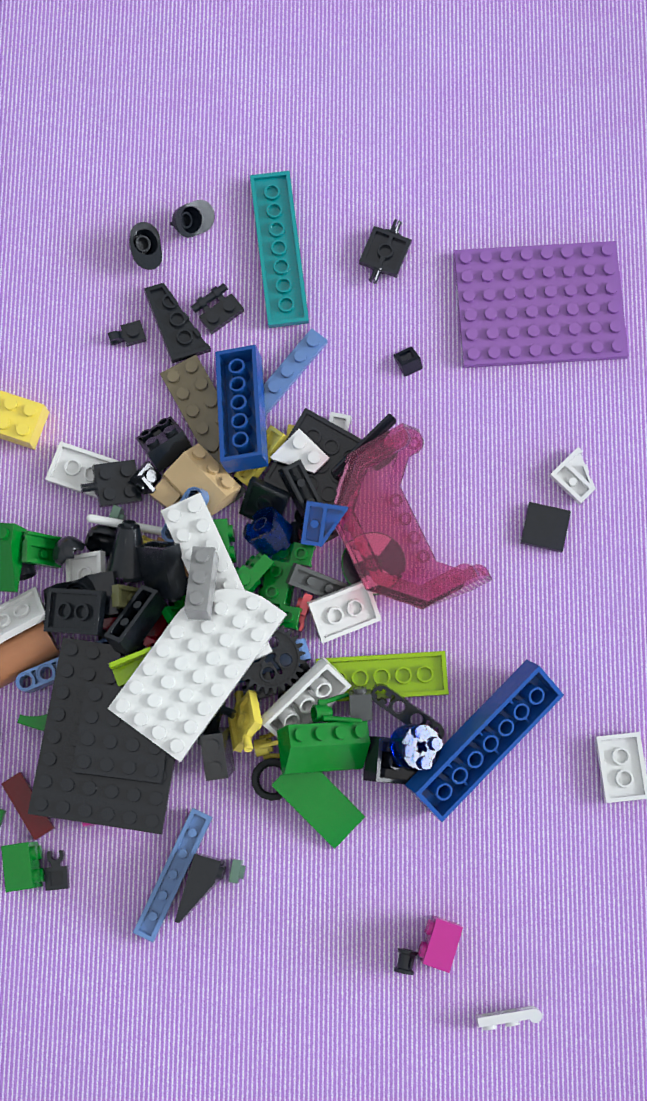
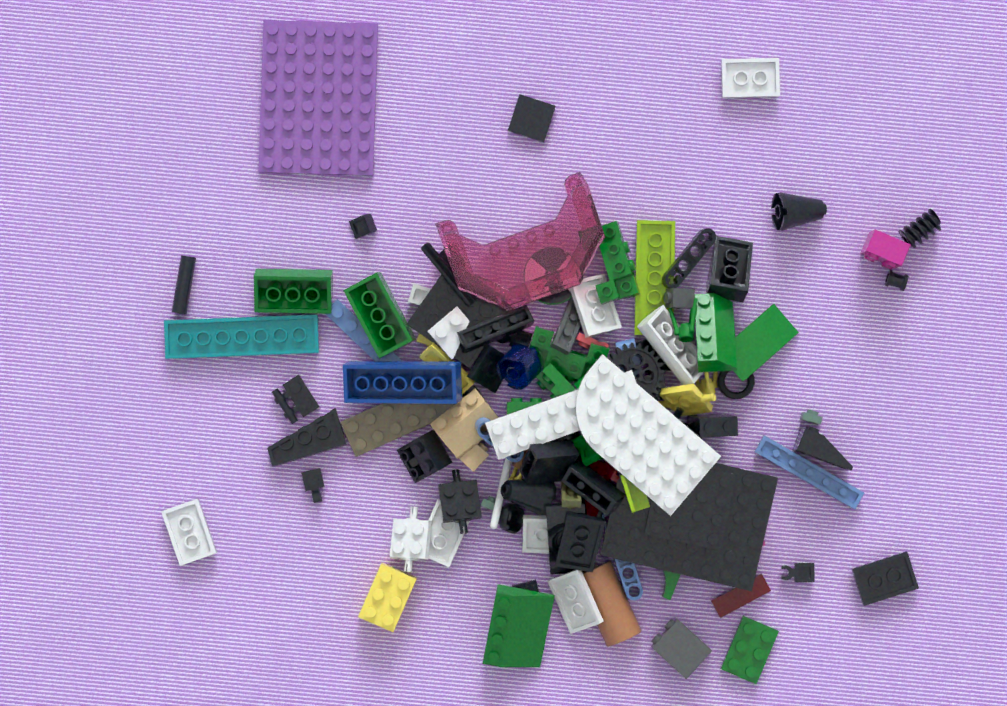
camera: 90 degrees left, 10 degrees up
(22, 866) = (793, 599): green brick -> none
(38, 549) = (516, 572): green plate -> none
(54, 976) = (885, 578): none -> black plate
(65, 548) = (518, 550): black hair -> none
(71, 215) = (189, 532): none -> white plate
(73, 435) = (410, 539): none -> white plate
(145, 245) = (231, 461): black piece -> none
(146, 478) = (458, 474): black bracket -> none
(193, 218) = (205, 416): black piece -> none
(201, 583) = (571, 425): light grey brick -> none
(314, 382) = (379, 314): none -> green slope
(320, 522) = (516, 319): blue wing -> none
(327, 187) = (183, 284): none -> black piece
(331, 293) = (293, 291): none -> green slope
(385, 251) = (254, 236): black plate -> none
(393, 632) = (618, 266): none -> green bracket
(415, 746) = (721, 254): clear blue brick -> none
(470, 987) = (921, 228): none -> black piece
(475, 833) = (795, 210): none -> black cone
(485, 739) = (719, 193): blue brick -> none
(510, 1017) = (948, 198): white plate -> none
(574, 477) = (488, 87): white wing -> none

